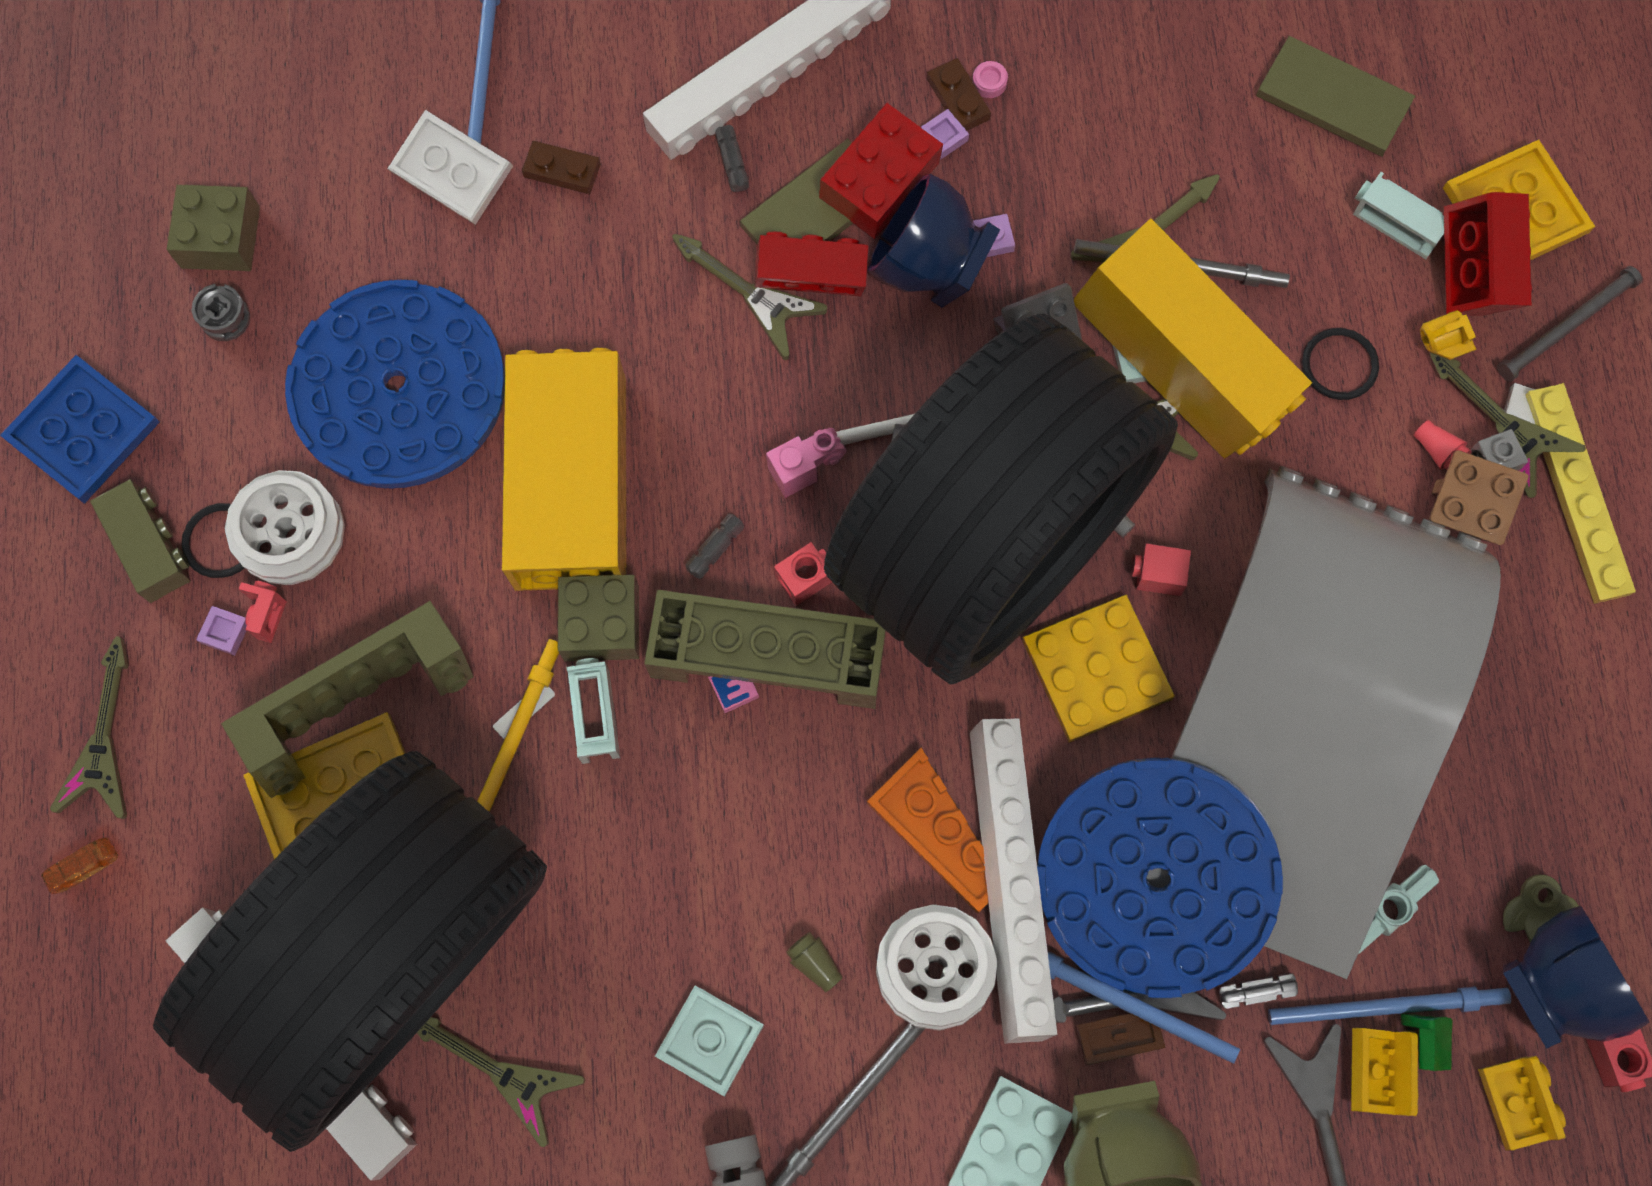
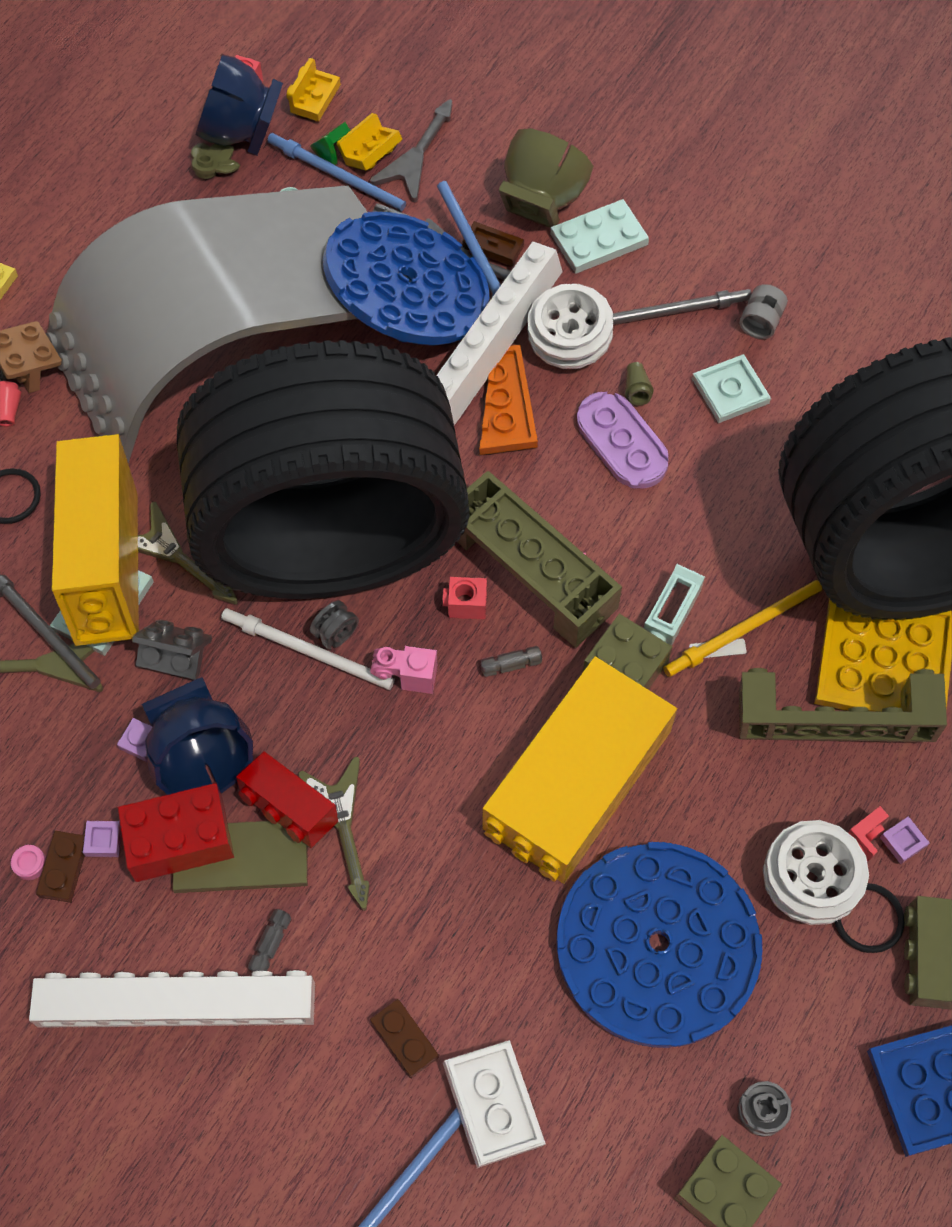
camera: 145 degrees left, 10 degrees down
(784, 881) = (622, 440): none -> lavender tile

